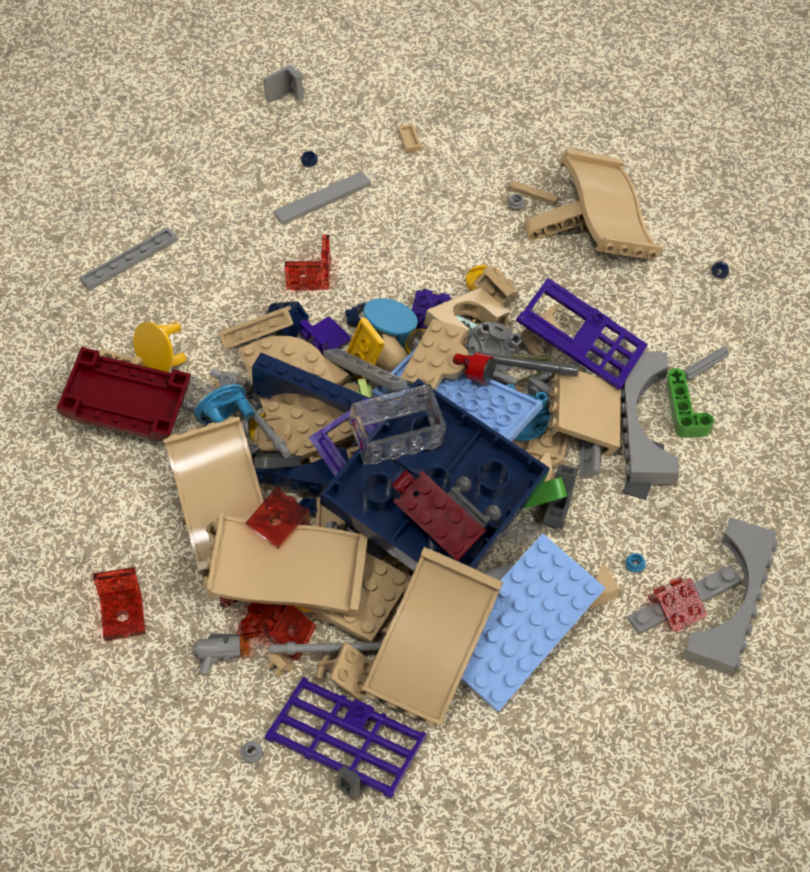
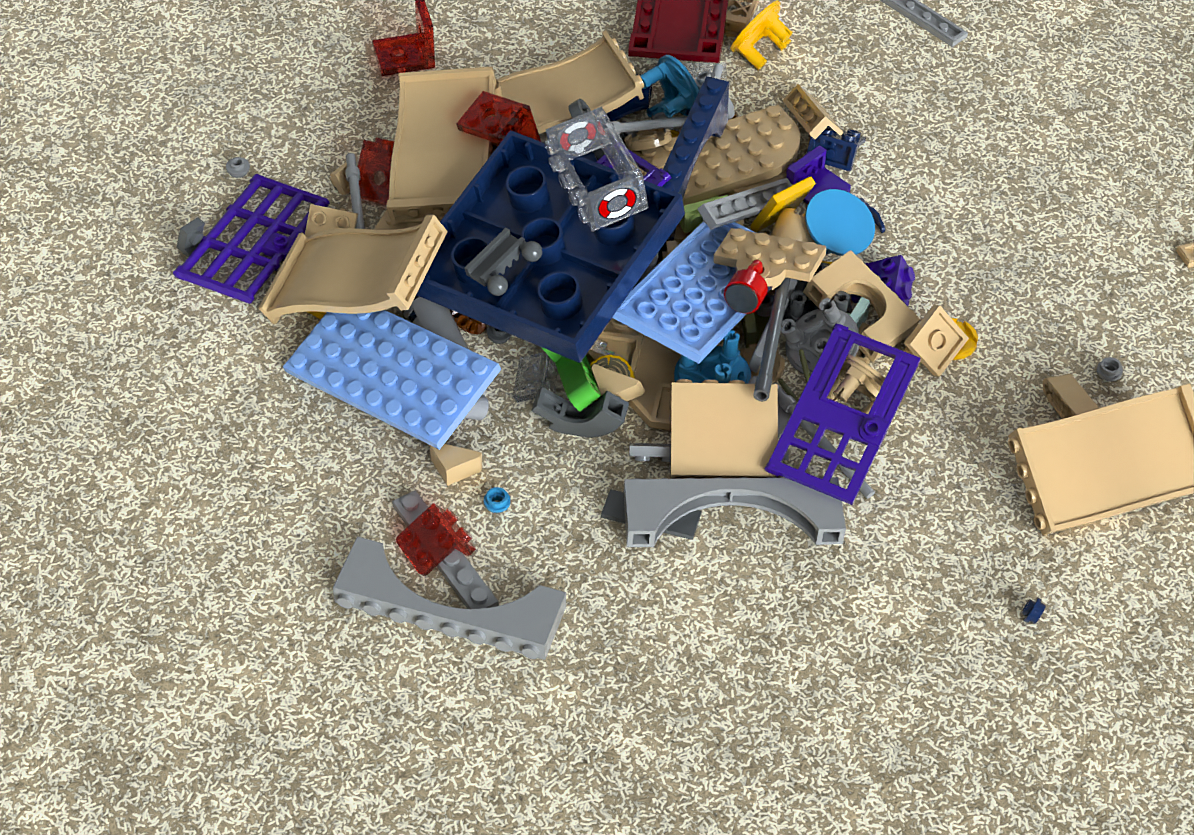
camera: 85 degrees right, 5 degrees down
(220, 647) = (360, 126): light grey piece -> none
(309, 158) = (1128, 150): dark blue plate -> none
(316, 272) = (917, 164): clear red bracket -> none
(322, 198) = (1061, 170): light grey tile -> none
(437, 514) = (486, 228): dark red hinge -> none
(533, 192) = (1138, 379): tan axle -> none
(685, 421) = (760, 551): bright green beam -> none
(706, 363) = (848, 589): light grey axle -> none

